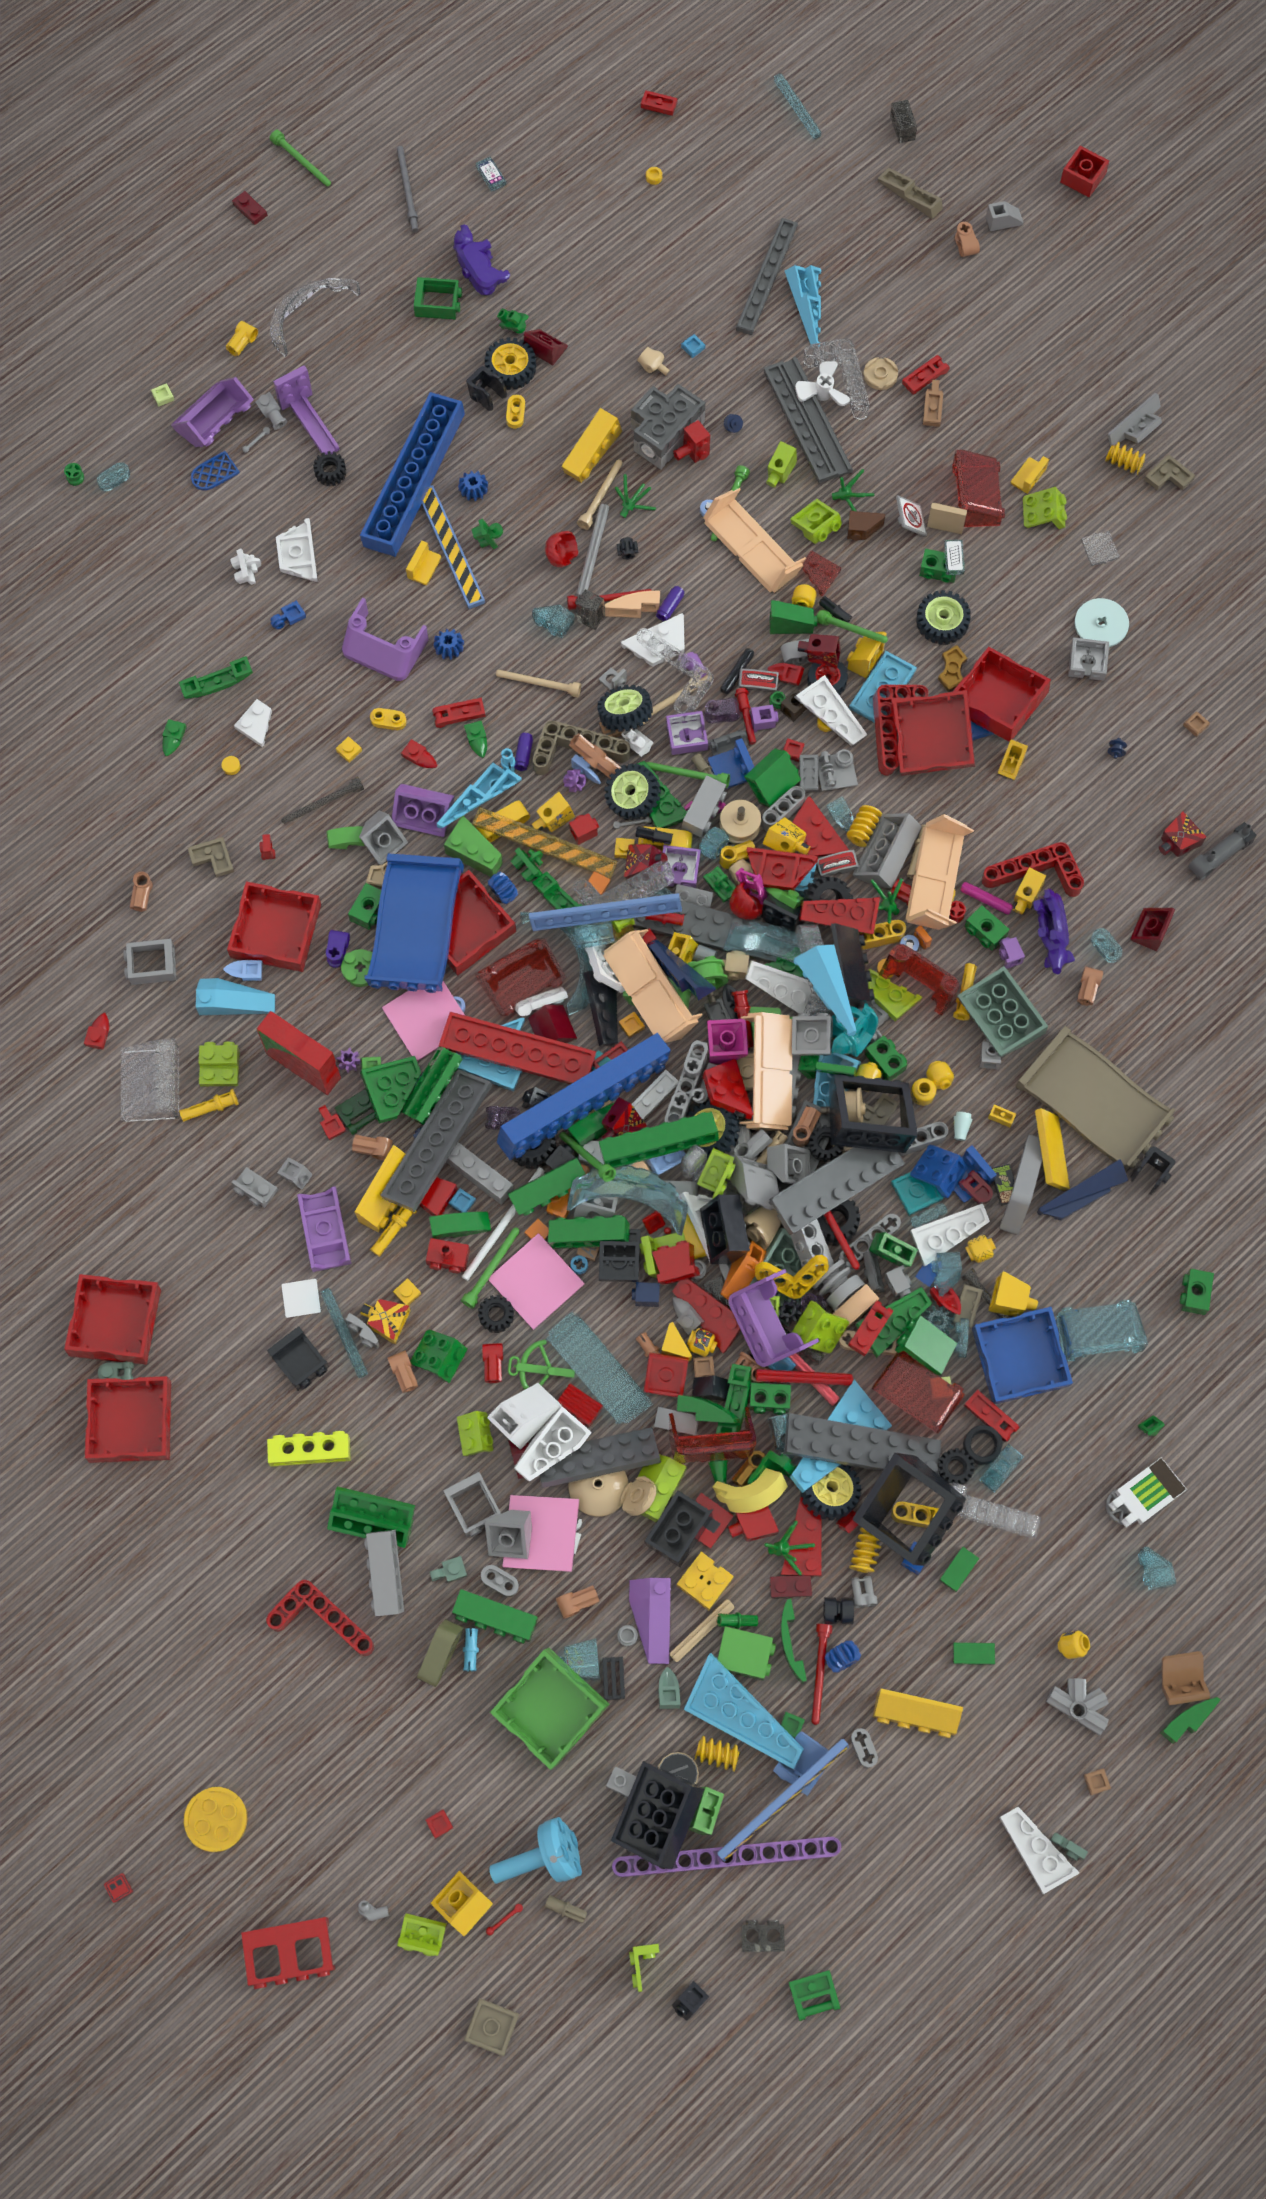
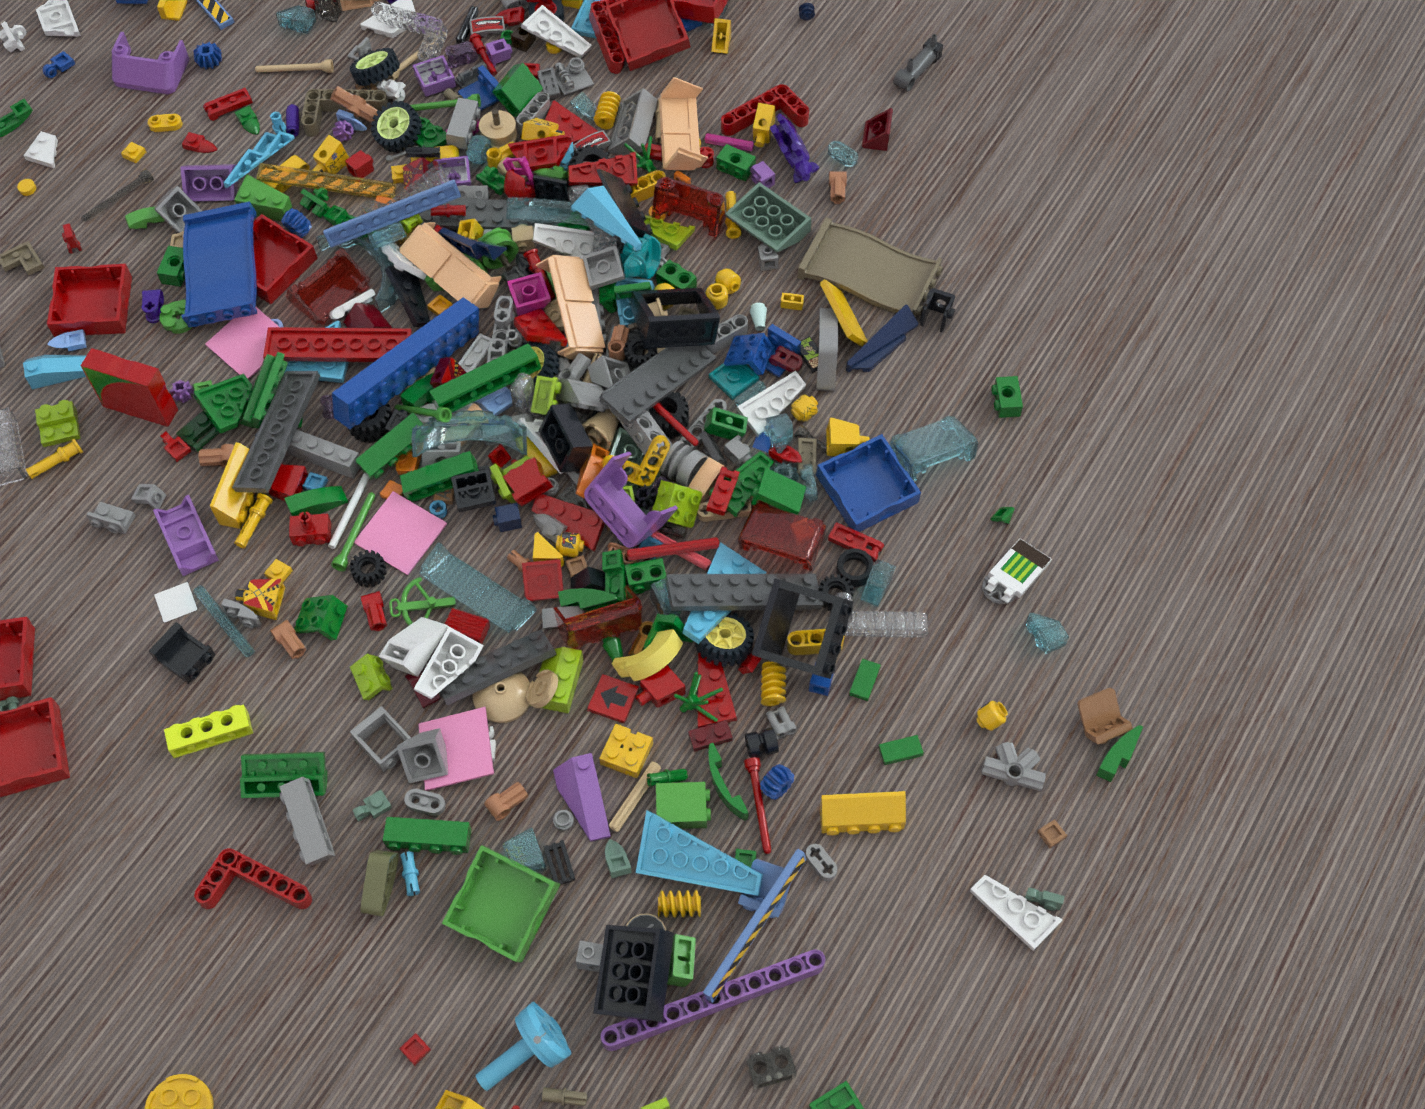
camera: 15 degrees left, 10 degrees down
(678, 1528) = (588, 708): black brick -> none
(1181, 836) = (881, 61): torso -> none

